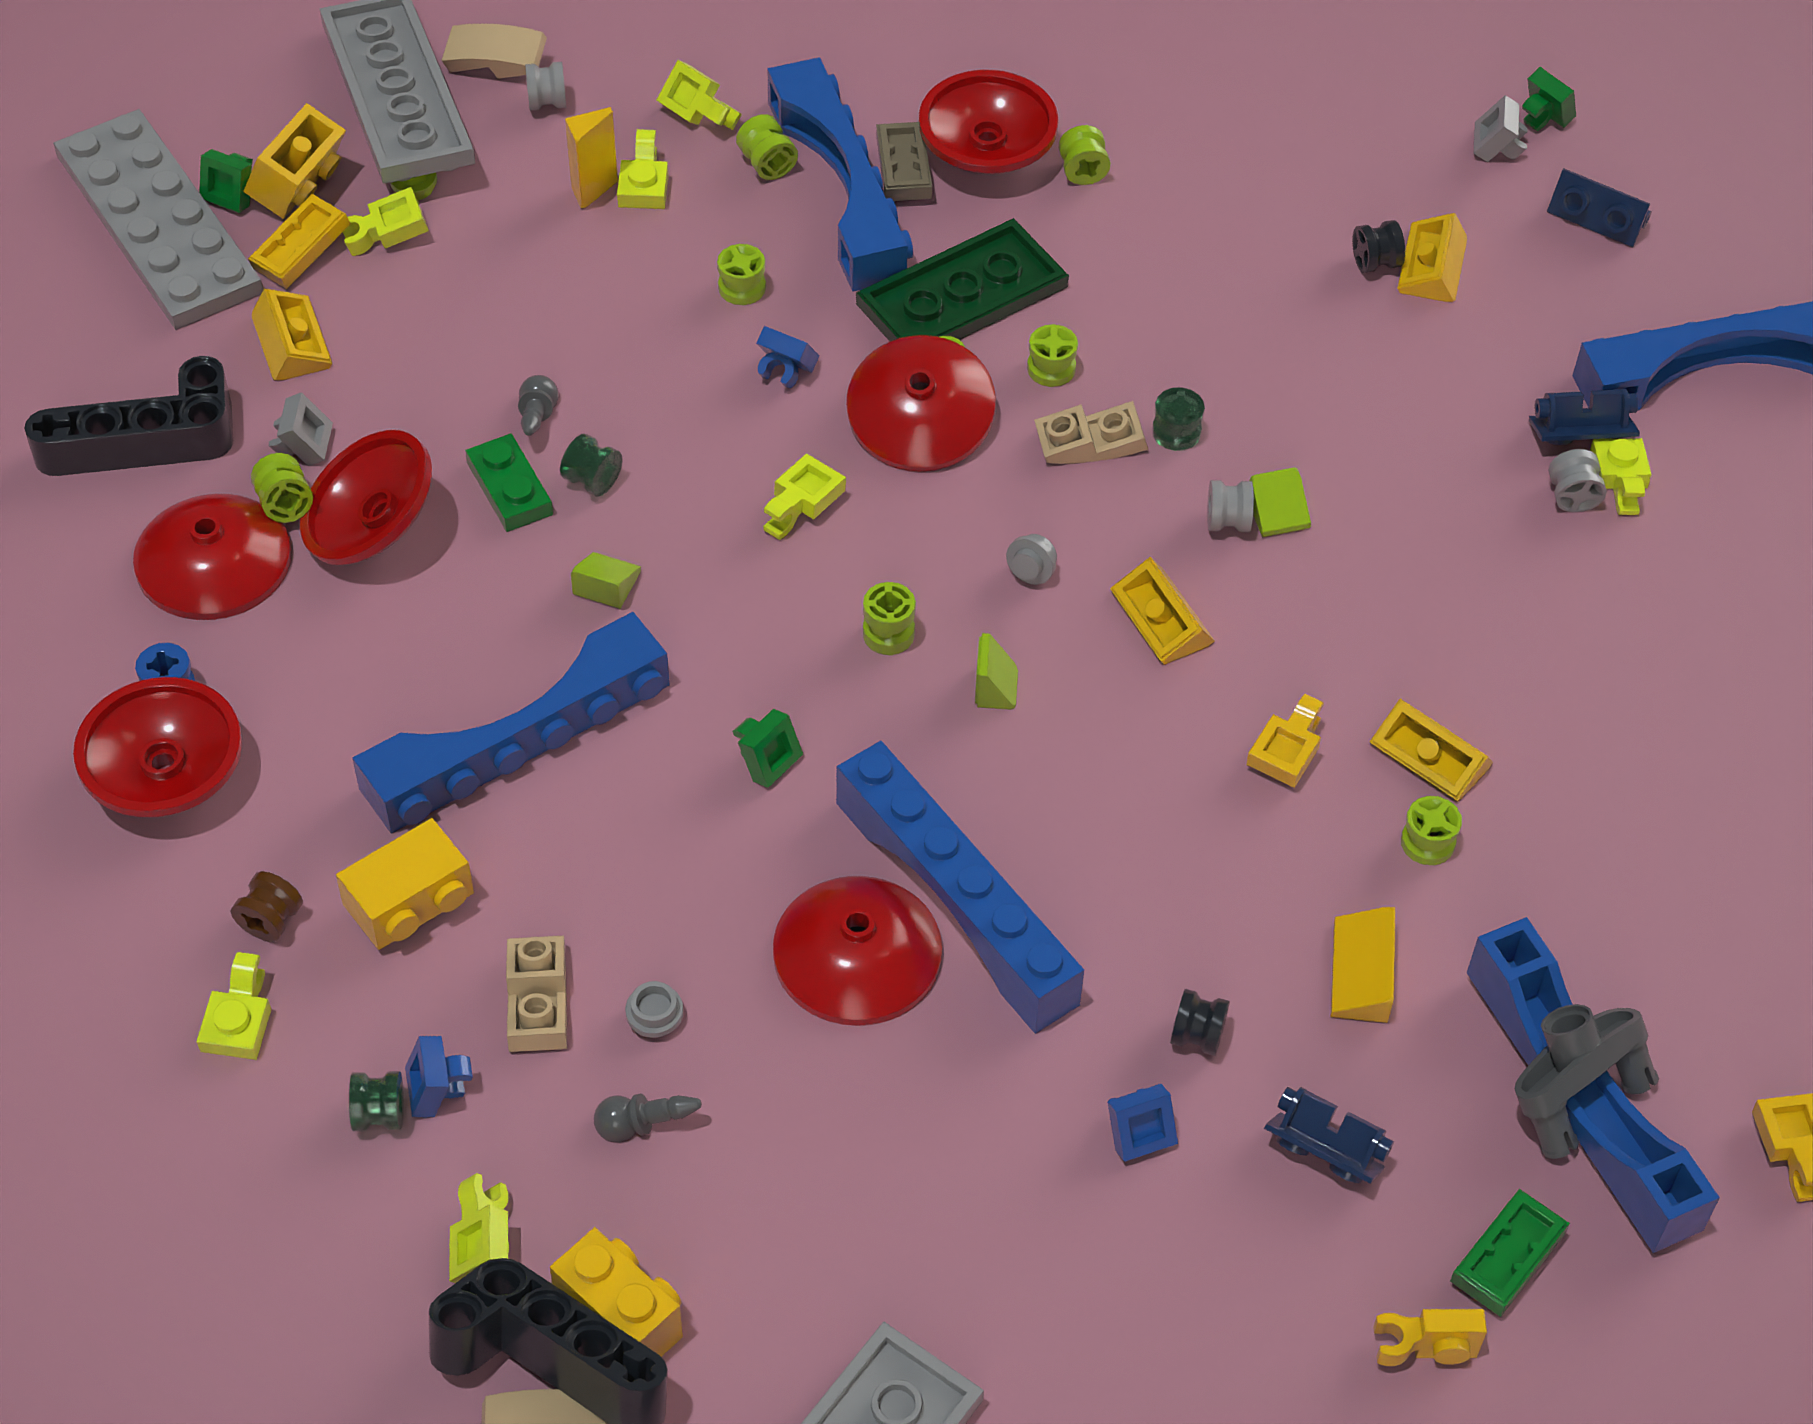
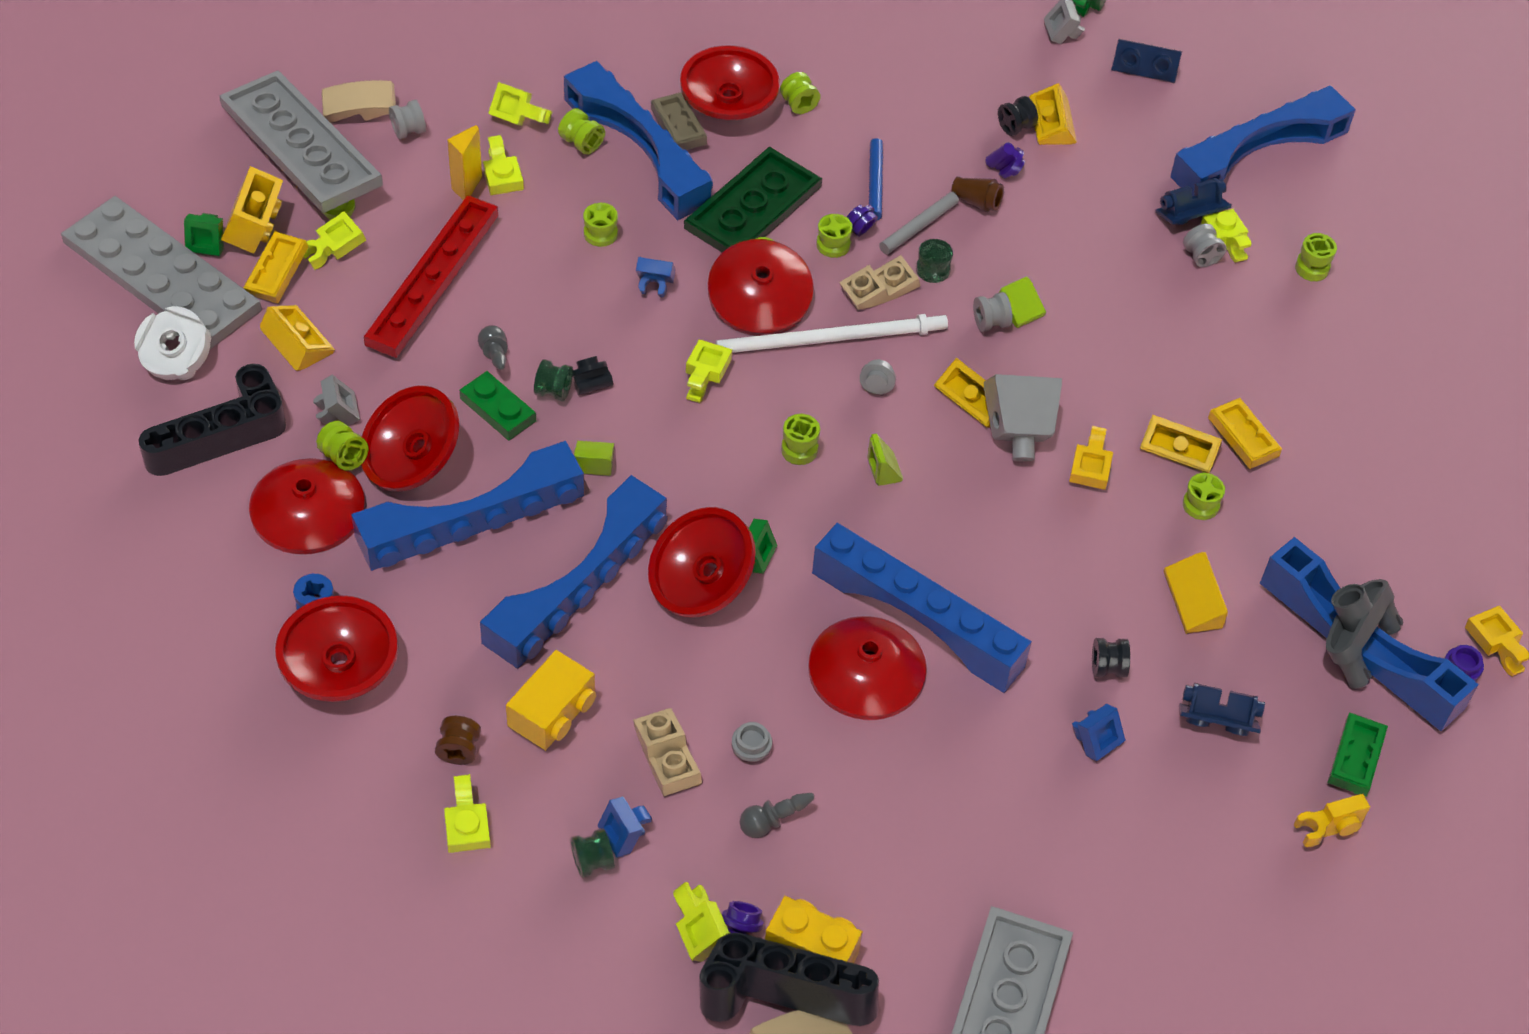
camera: 20 degrees left, 0 degrees up
(143, 326) = (183, 360): none -> white plate
(307, 617) = (401, 531): none -> blue arch
(491, 295) = (431, 276): none -> red plate
(538, 1243) = (743, 918): none -> dark purple plate
(646, 470) = (591, 375): none -> black plate
(679, 750) = (691, 551): none -> red dish
(1098, 342) = (862, 219): none -> dark purple plate
(1124, 502) = (920, 324): none -> white bar
(1144, 293) = (876, 176): none -> blue bar
(1181, 364) = (919, 223): none -> light grey bar
(1210, 650) = (1022, 410): none -> light grey torso
(1282, 340) = (980, 192): none -> reddish brown cone
(1337, 303) = (1006, 160): none -> dark purple plate
(1529, 756) = (1245, 433): none -> yellow plate
(1728, 1164) = (1467, 659): none -> dark purple plate
(1737, 532) = (1316, 257): none -> lime wheel

